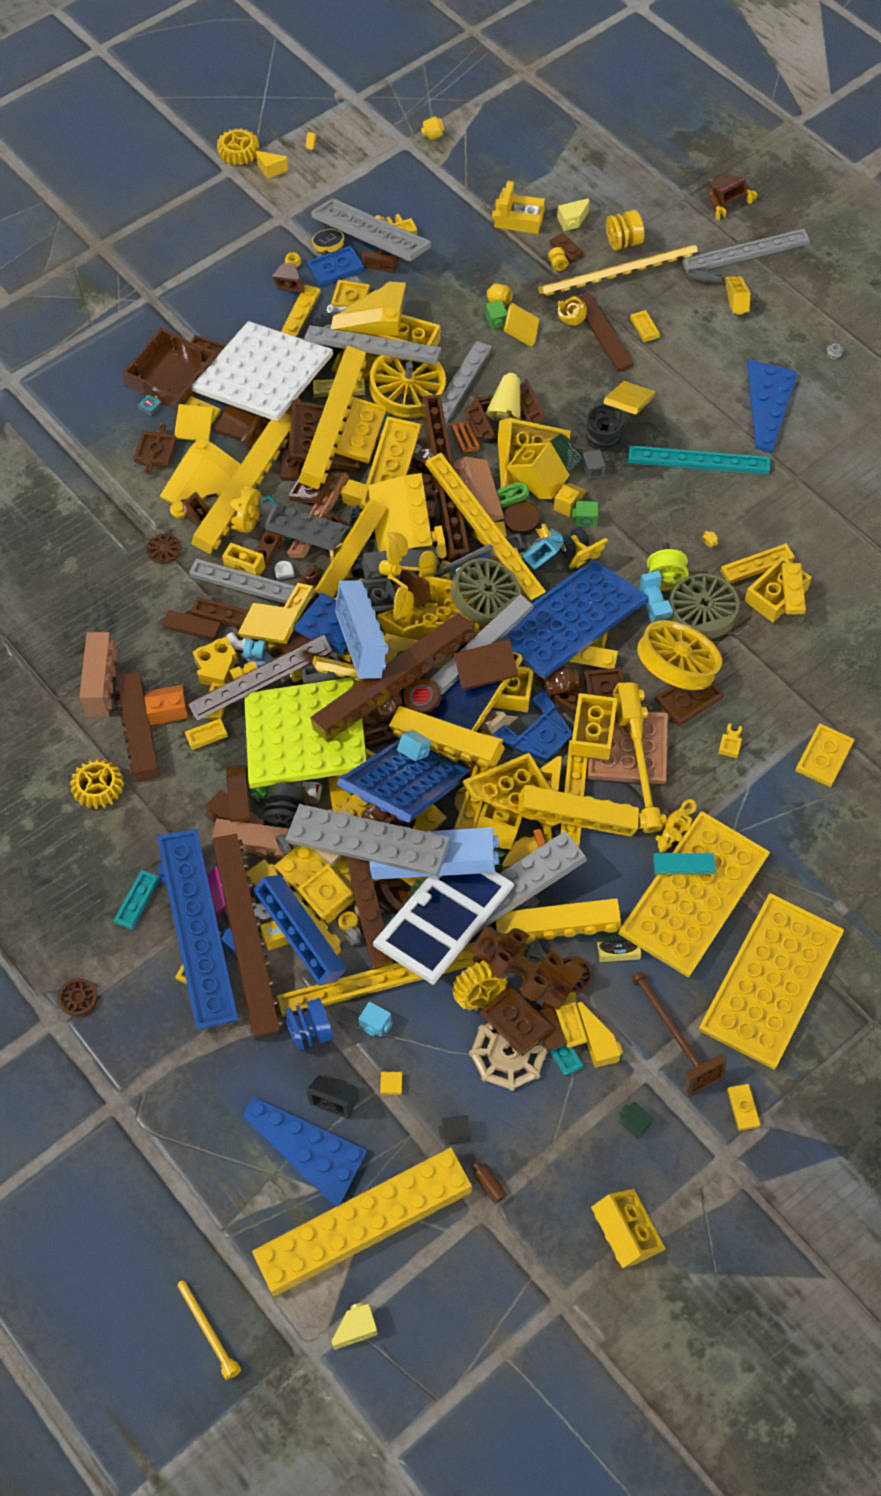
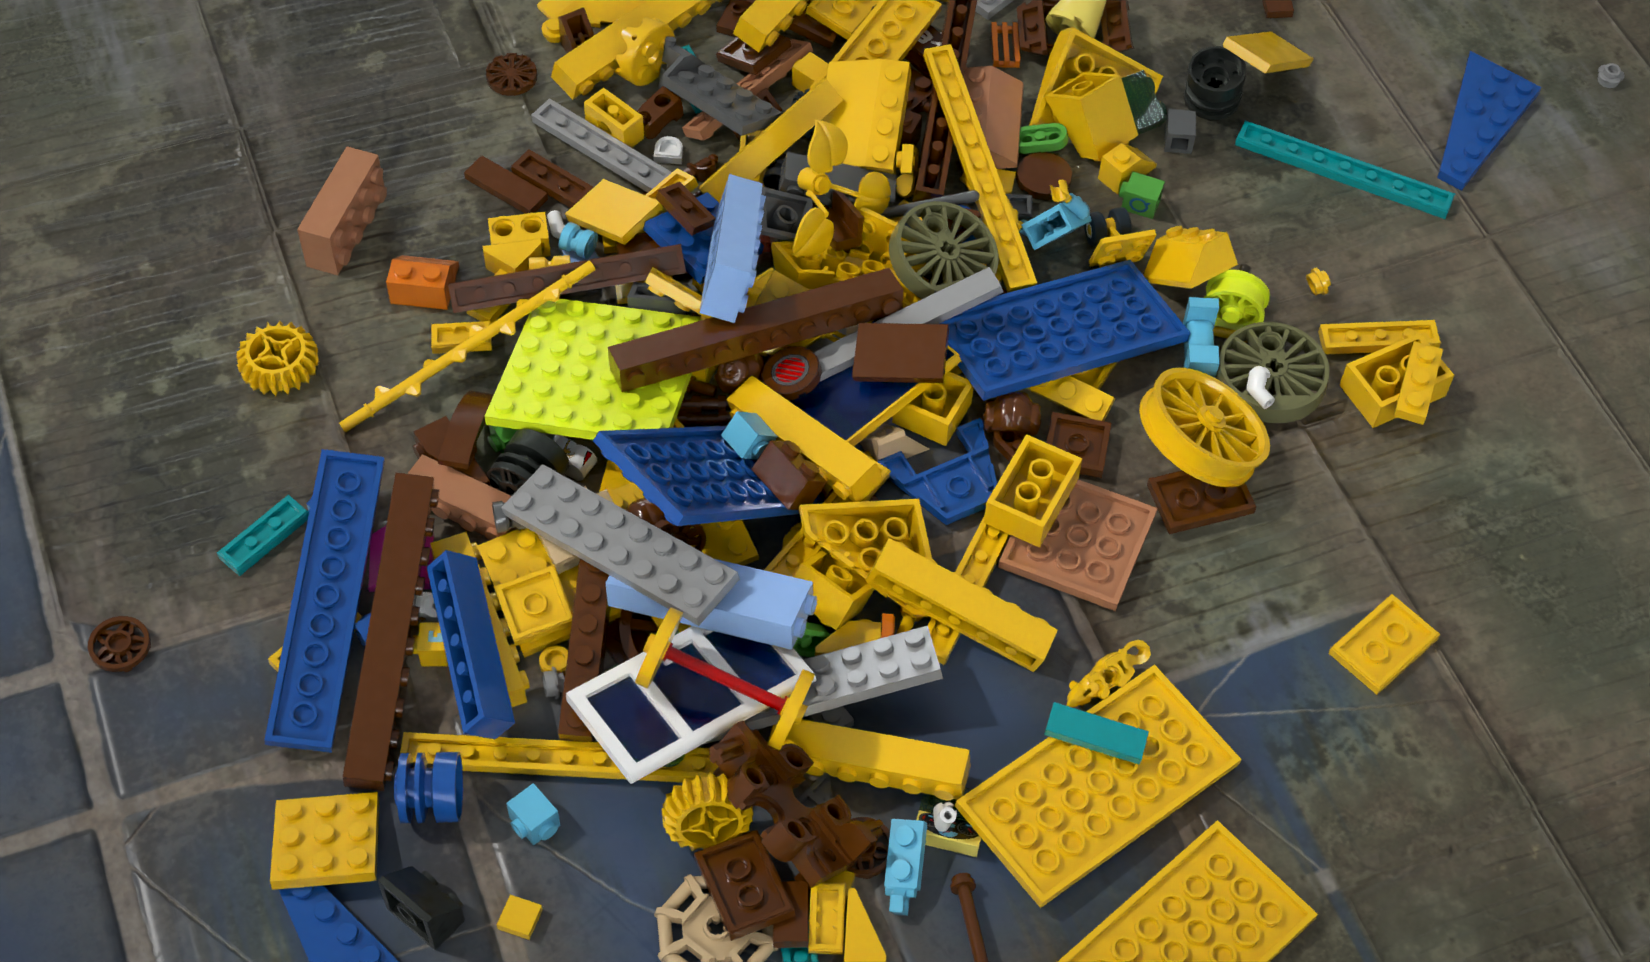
camera: 15 degrees right, 5 degrees down
(138, 727) = (368, 299): reddish brown brick -> none
(211, 747) = (477, 336): none -> yellow plant
(258, 1076) = (325, 840): none -> yellow plate
(316, 609) = (685, 208): none -> reddish brown plate
(448, 763) = (789, 474): none -> reddish brown brick
(509, 908) = (660, 648): none -> yellow piece
(551, 772) = (946, 541): yellow slope -> none
(602, 977) = (904, 863): none -> medium azure hinge
(615, 942) = (944, 816): none -> white arm
(631, 549) = (1189, 257): none -> yellow slope
(632, 715) = (1097, 492): yellow bar -> none
(699, 618) = (1256, 386): none -> white arm
(730, 743) = (1240, 581): yellow plate -> none

